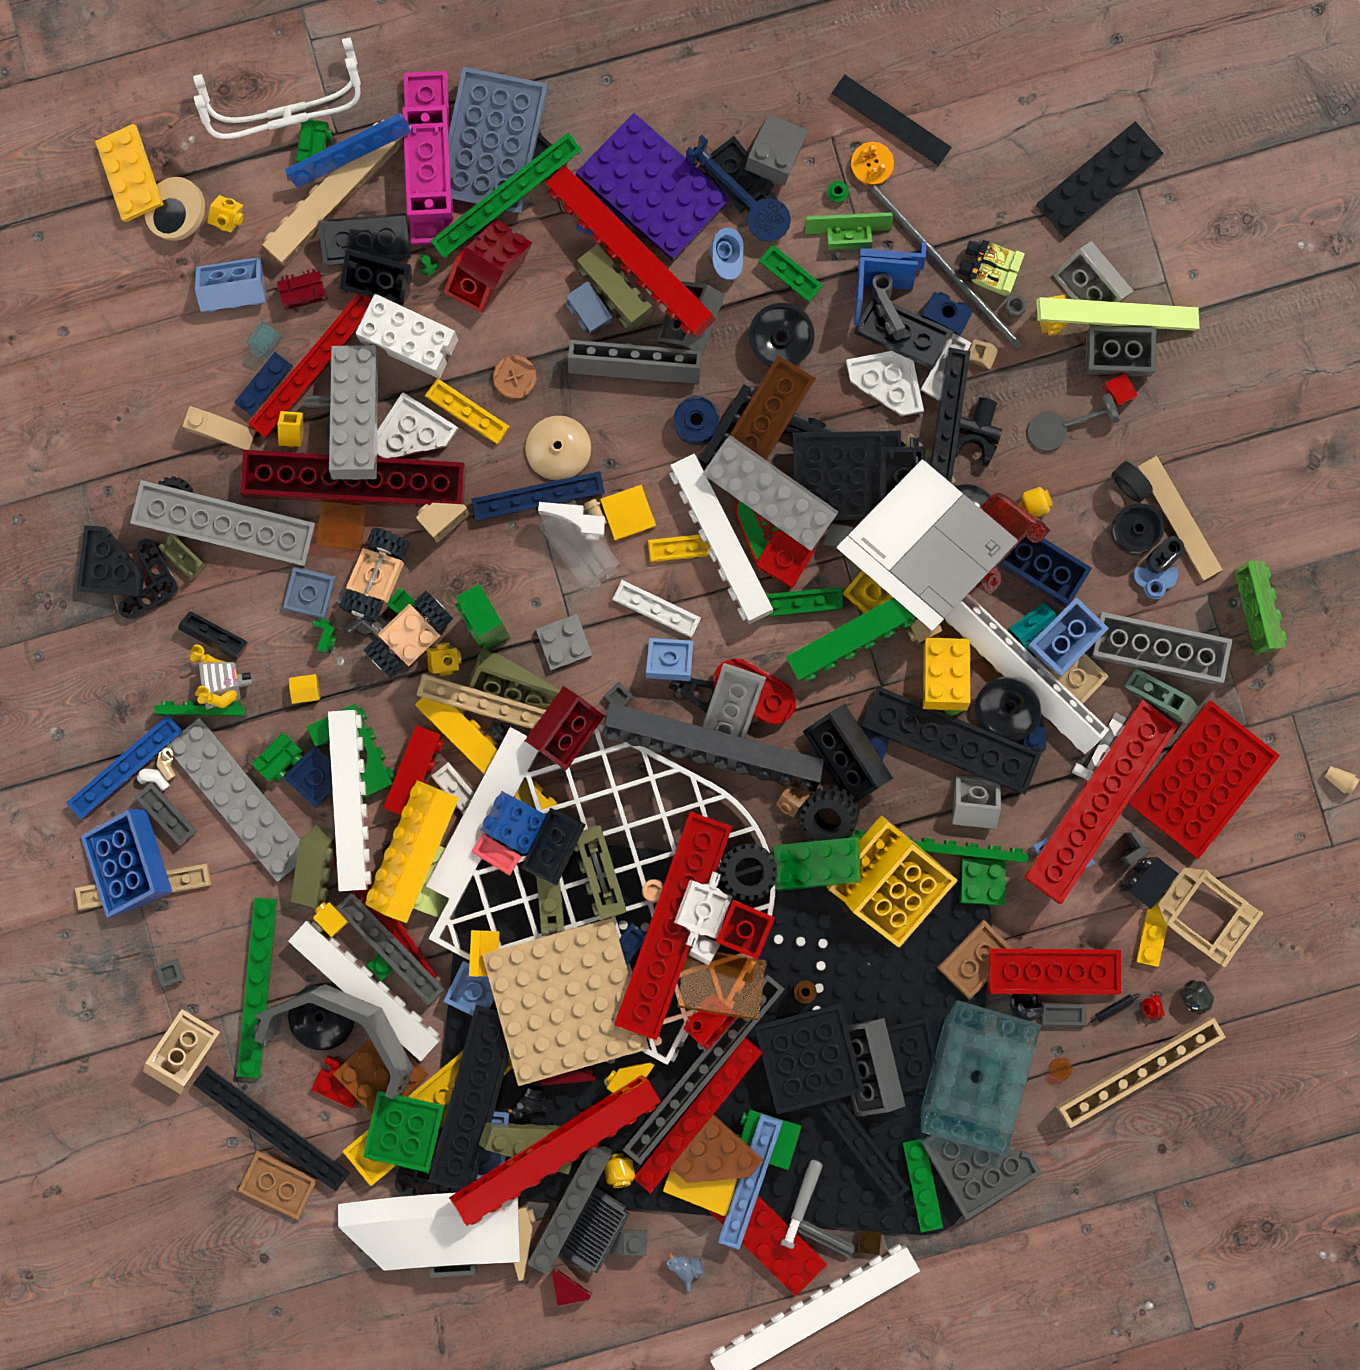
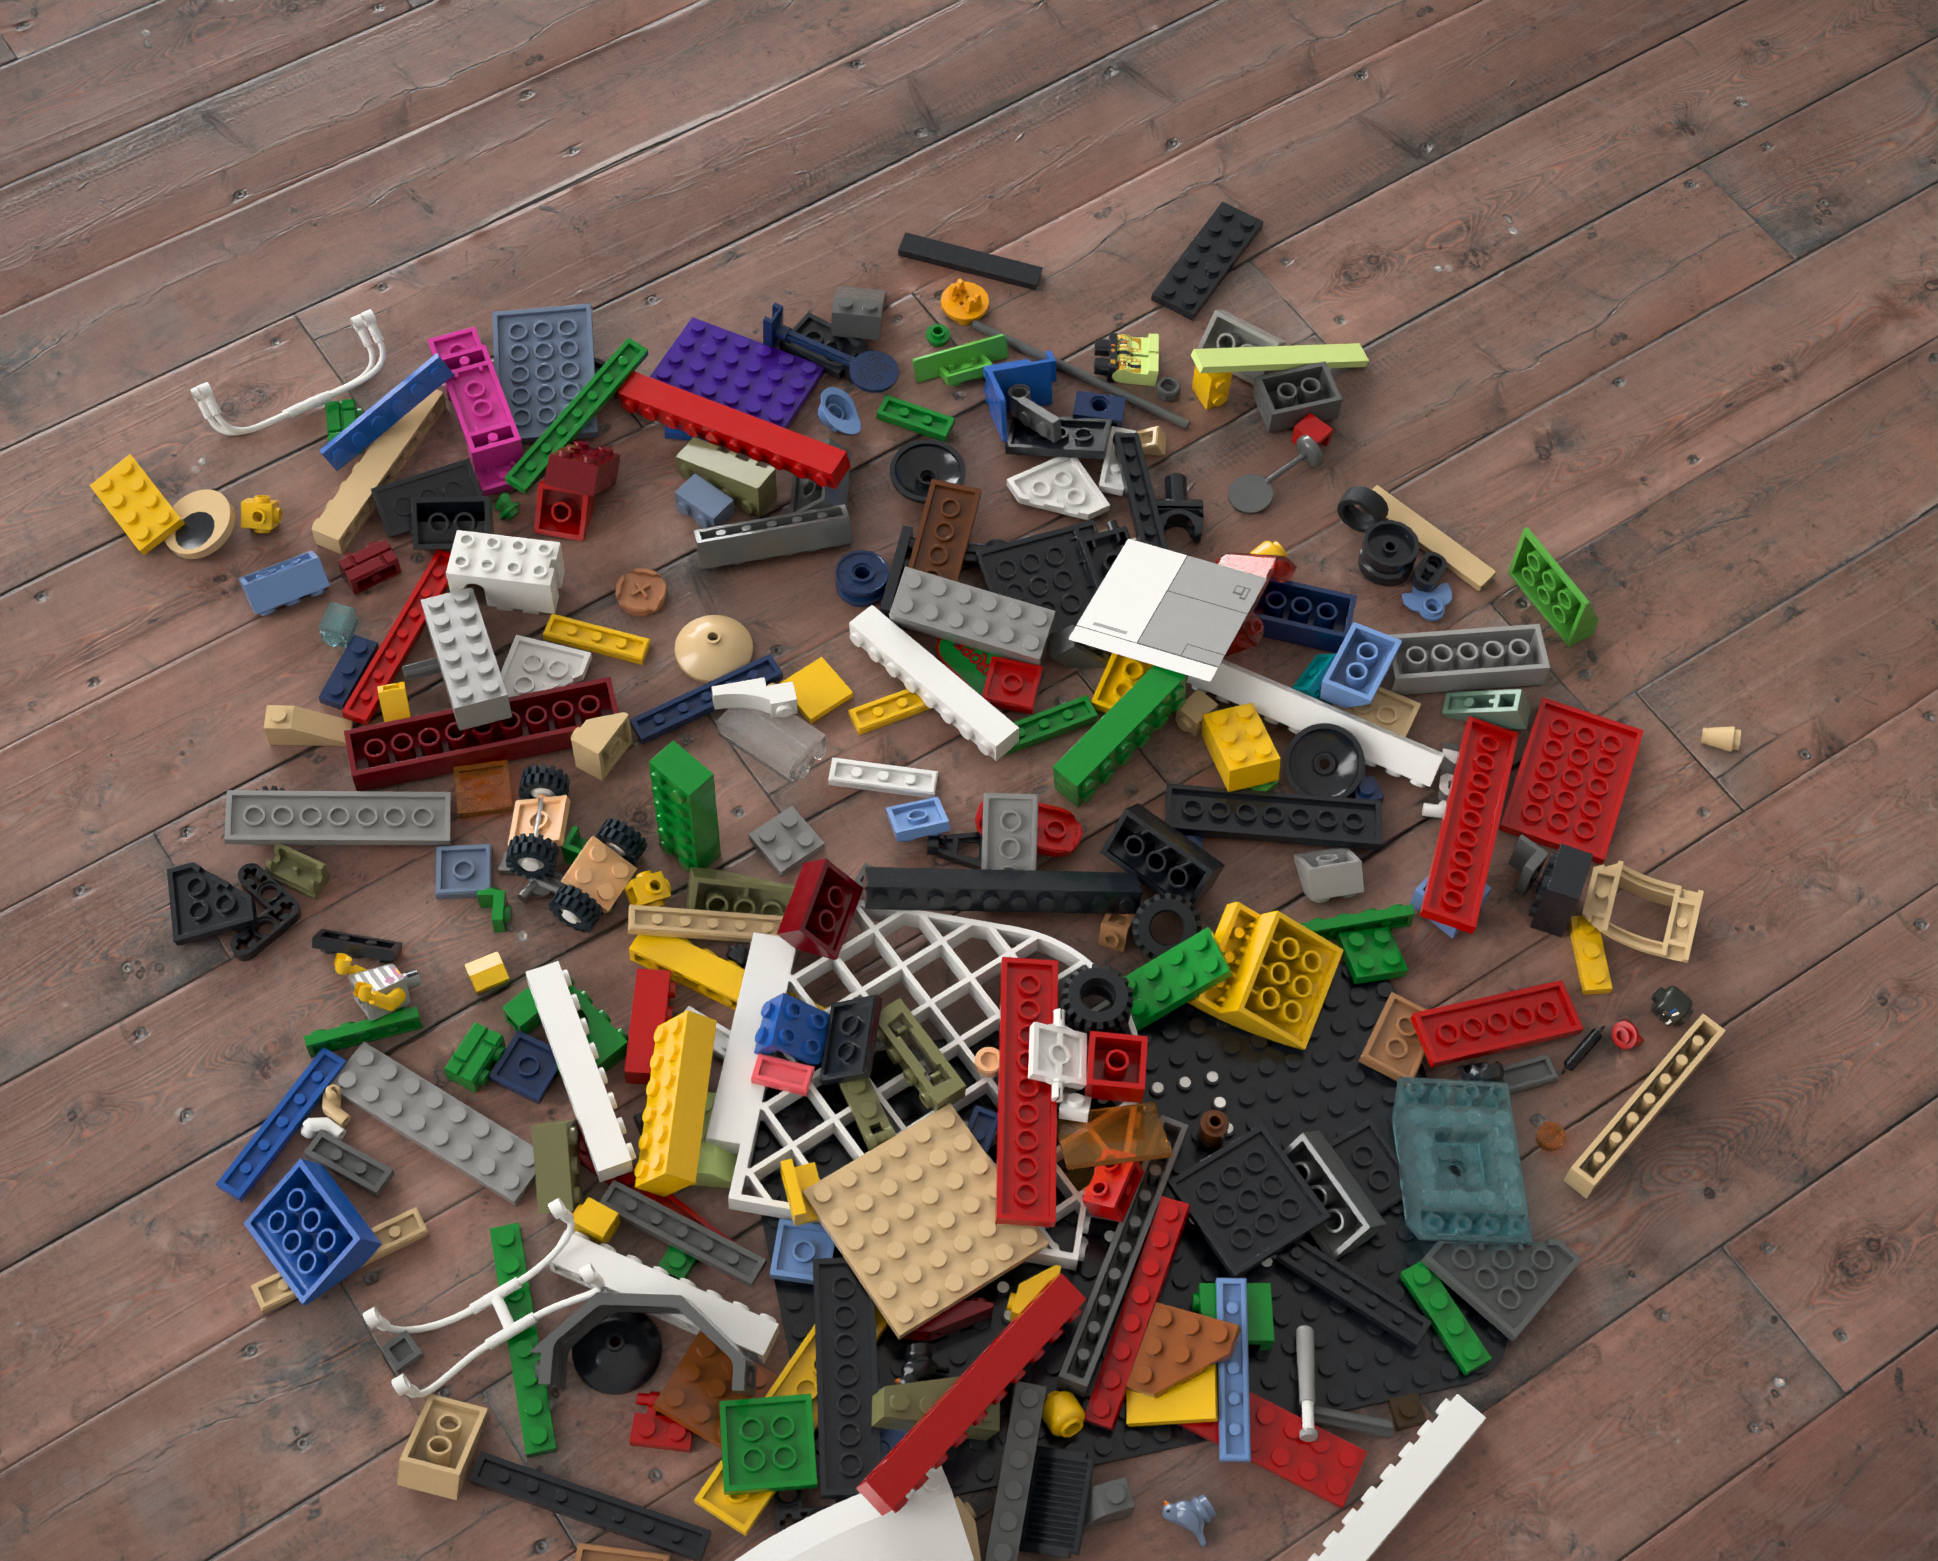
camera: 20 degrees left, 25 degrees down
(304, 985) = (590, 1276): none -> white bar

